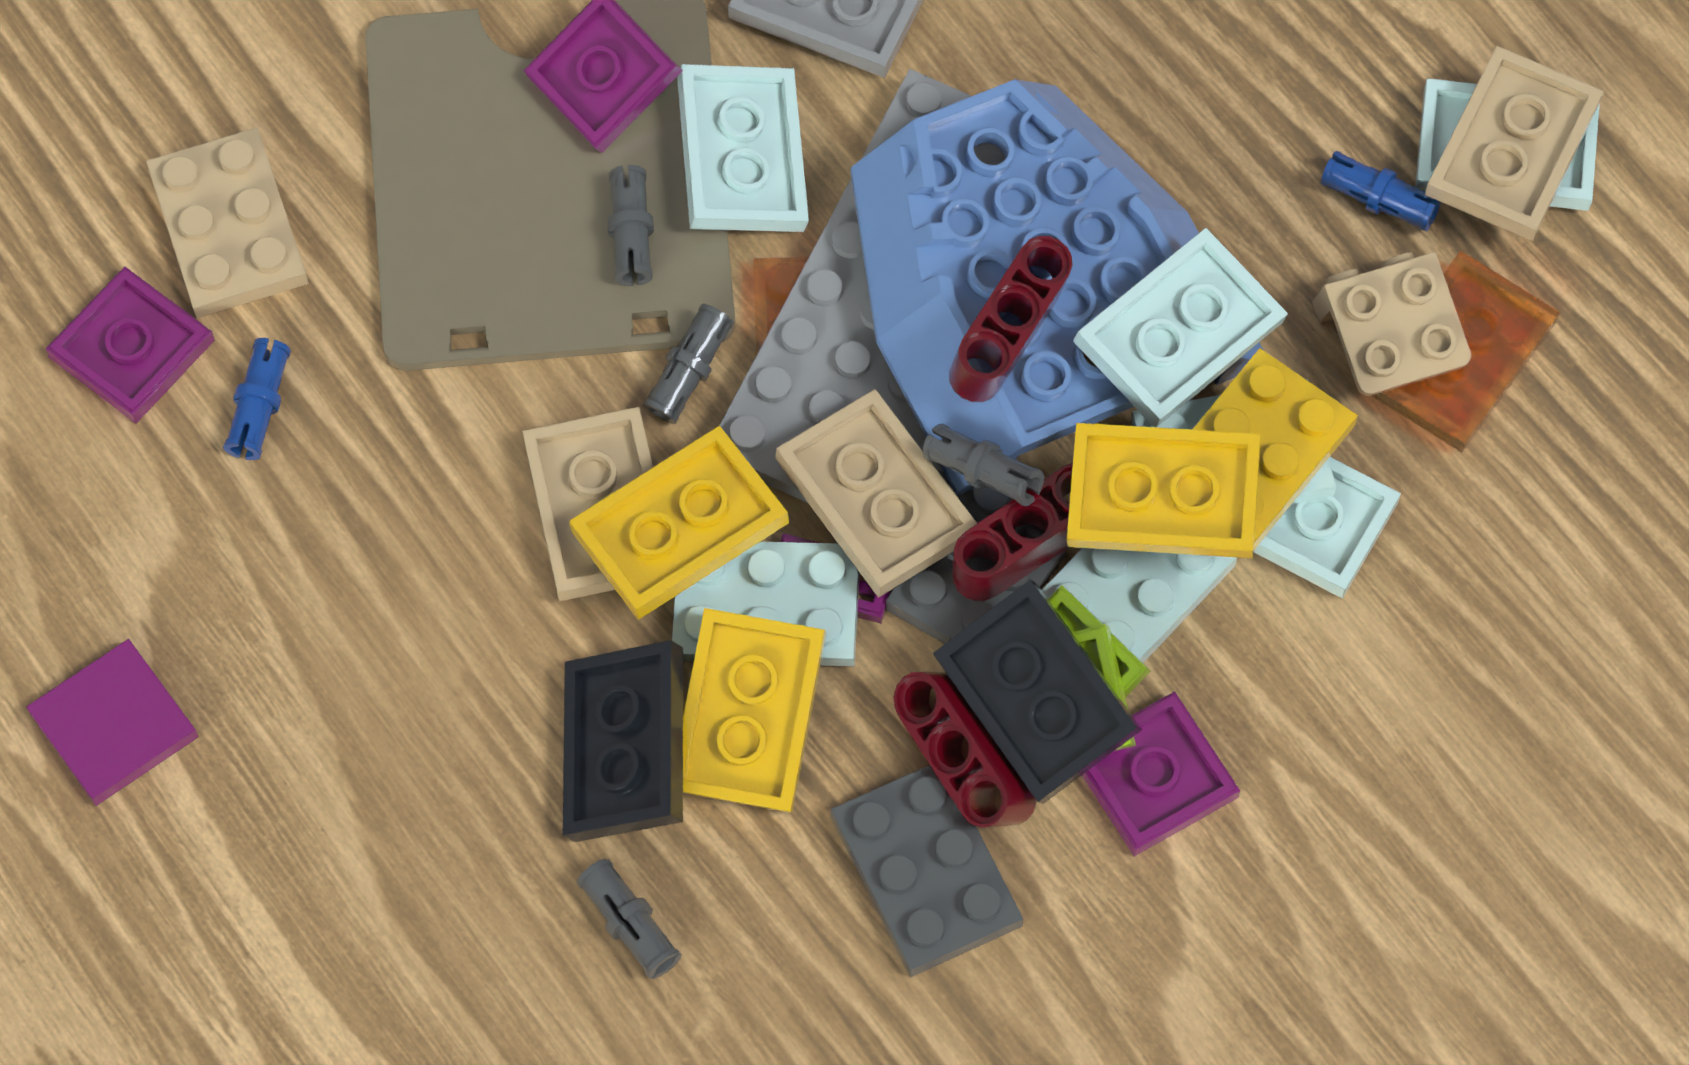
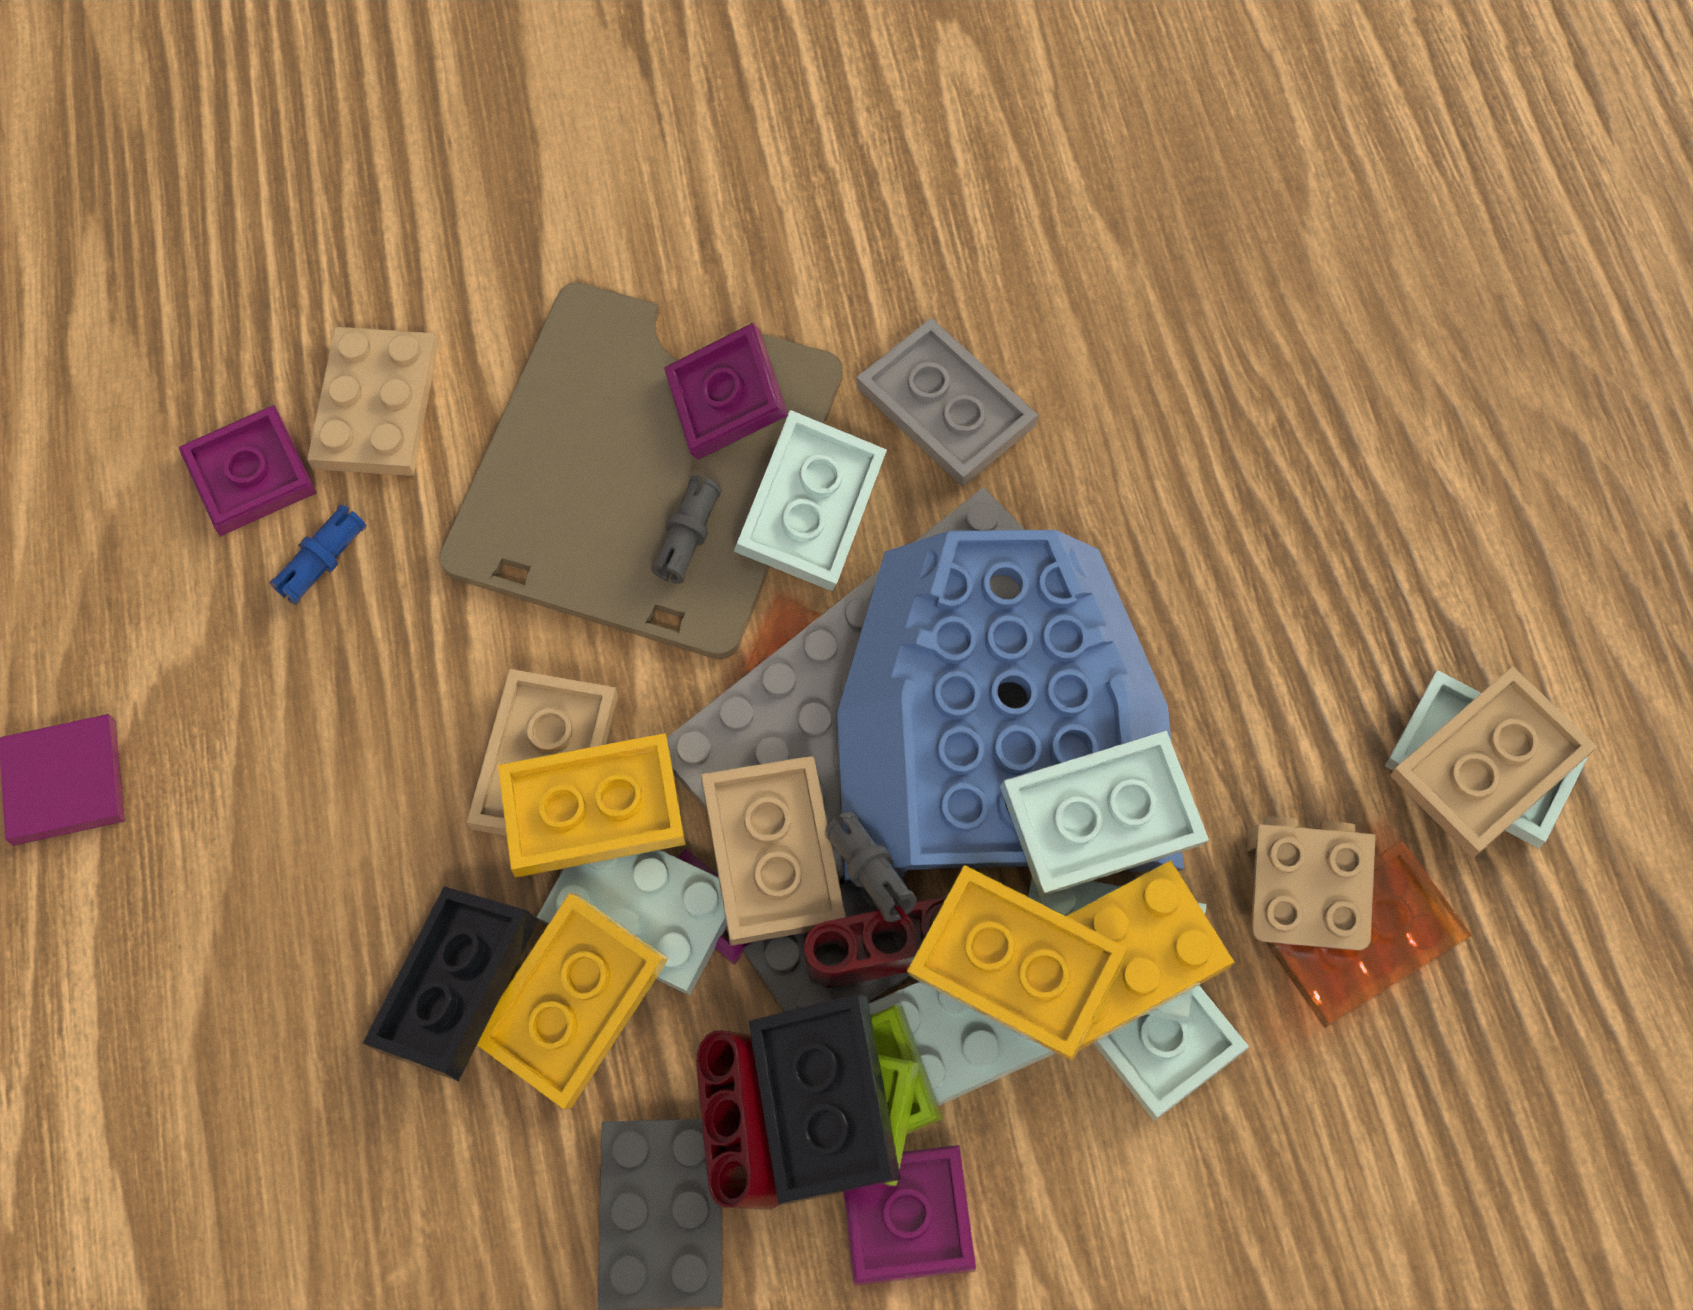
camera: 25 degrees right, 0 degrees up
(629, 918) = (380, 1146): dark grey pin -> none
(688, 363) = (676, 666): dark grey pin -> none
(1021, 295) = (964, 722): dark red beam -> none
(1380, 191) = (1351, 754): blue pin -> none

